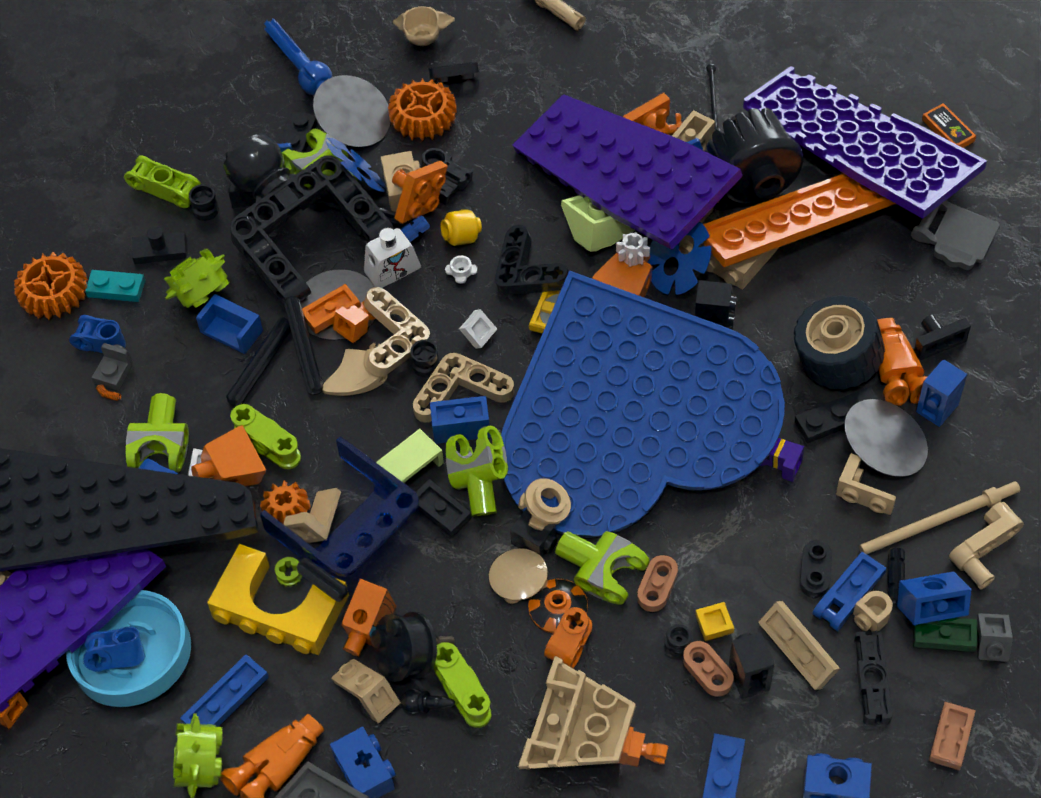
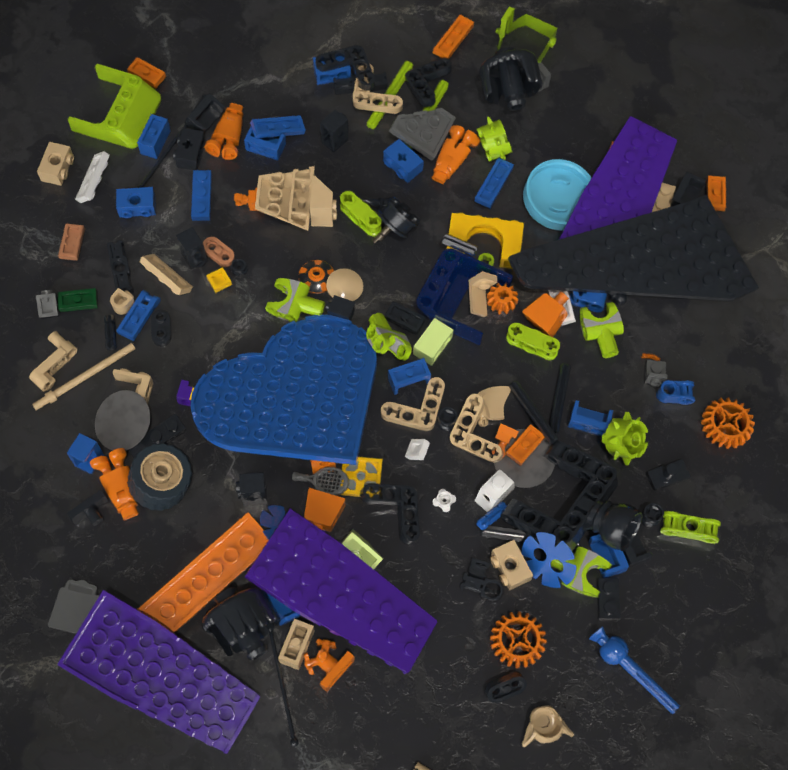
camera: 160 degrees right, 10 degrees up
(115, 285) = (684, 437): teal plate -> none
(115, 647) = (569, 184): blue piece -> none
(351, 110) = (572, 622): flat silver sticker -> none
(363, 614) = (427, 230): orange torso -> none
(369, 687) = (418, 201): tan bracket -> none
(419, 190) = (493, 543): orange plate -> none
(460, 227) = (453, 531): yellow head -> none
(522, 695) = (322, 205): none -> tan slope
(541, 513) = (343, 314): tan piece -> none
(568, 641) = (303, 251): orange piece -> none
(632, 249) = (319, 513): white gear -> none
(657, 585) = (257, 298): nougat plate -> none
(934, 598) = (93, 304): blue brick -> none
(948, 125) = (90, 717): tile -> none

